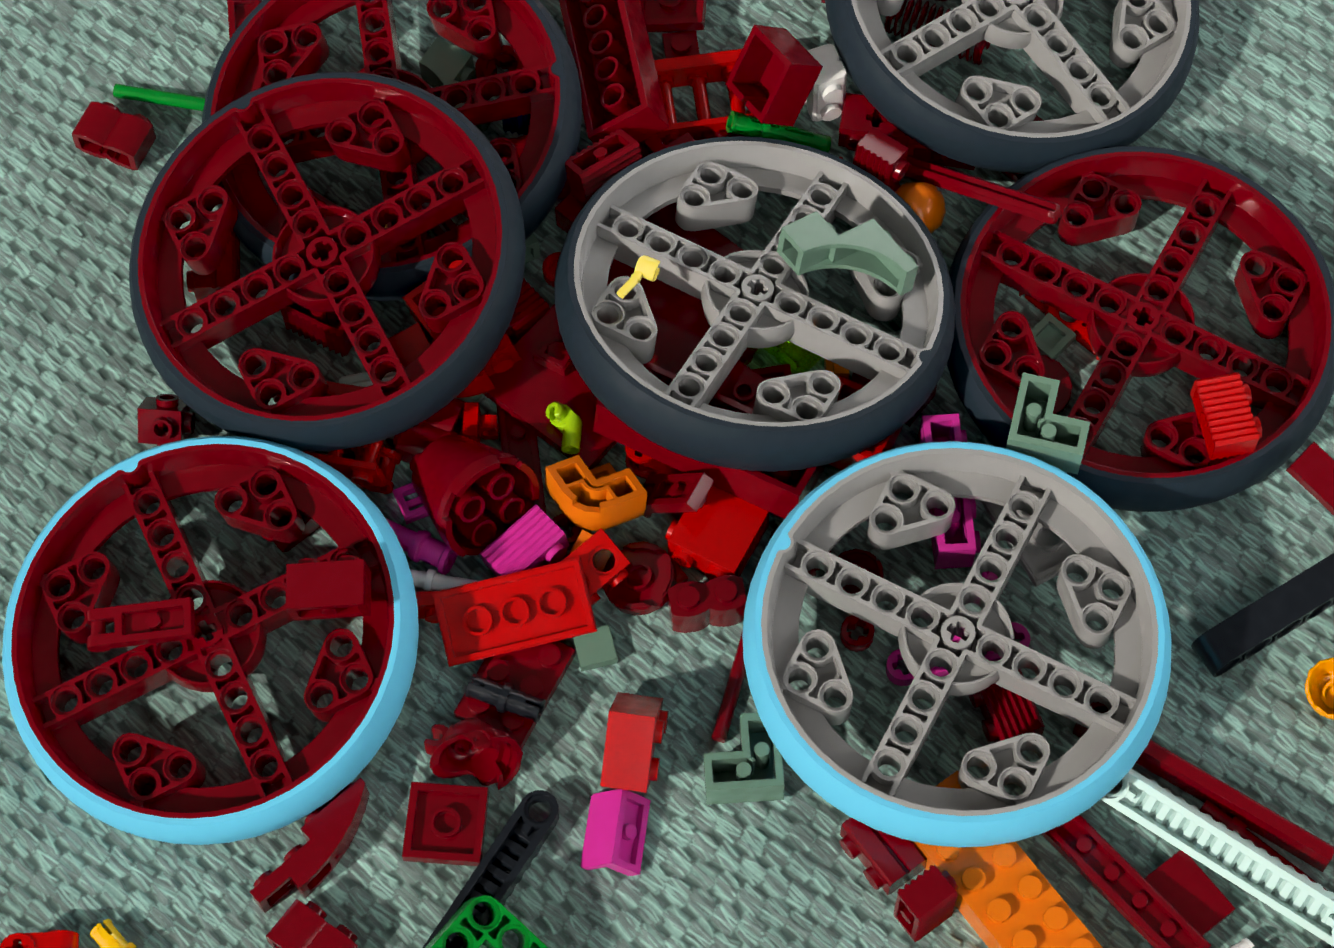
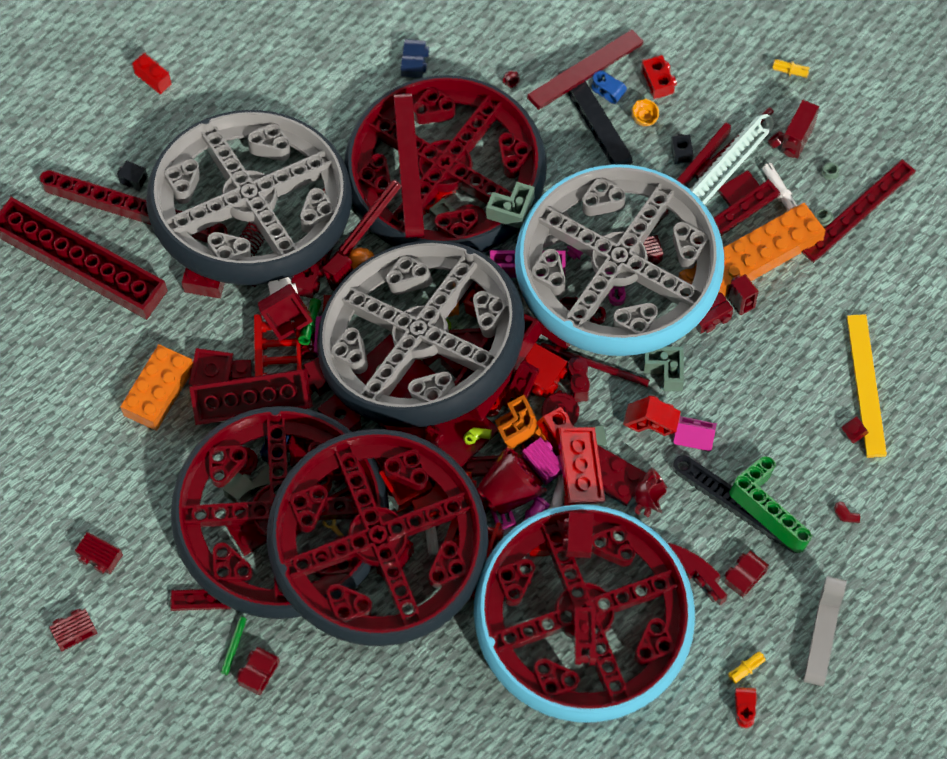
camera: 85 degrees left, 0 degrees up
(164, 420) = (448, 641): dark red brick -> none
(445, 824) = (686, 510): dark red plate -> none
(505, 697) = (625, 474): black pin -> none
(599, 163) = (329, 401): dark red brick -> none
(645, 268) = (411, 372): light yellow hand -> none
(867, 248) = (404, 273): sand green arch -> none
(1112, 242) = (408, 165): none -> dark red beam
(1226, 415) = (511, 128): red brick -> none
(1251, 780) = (682, 155): none -> black brick

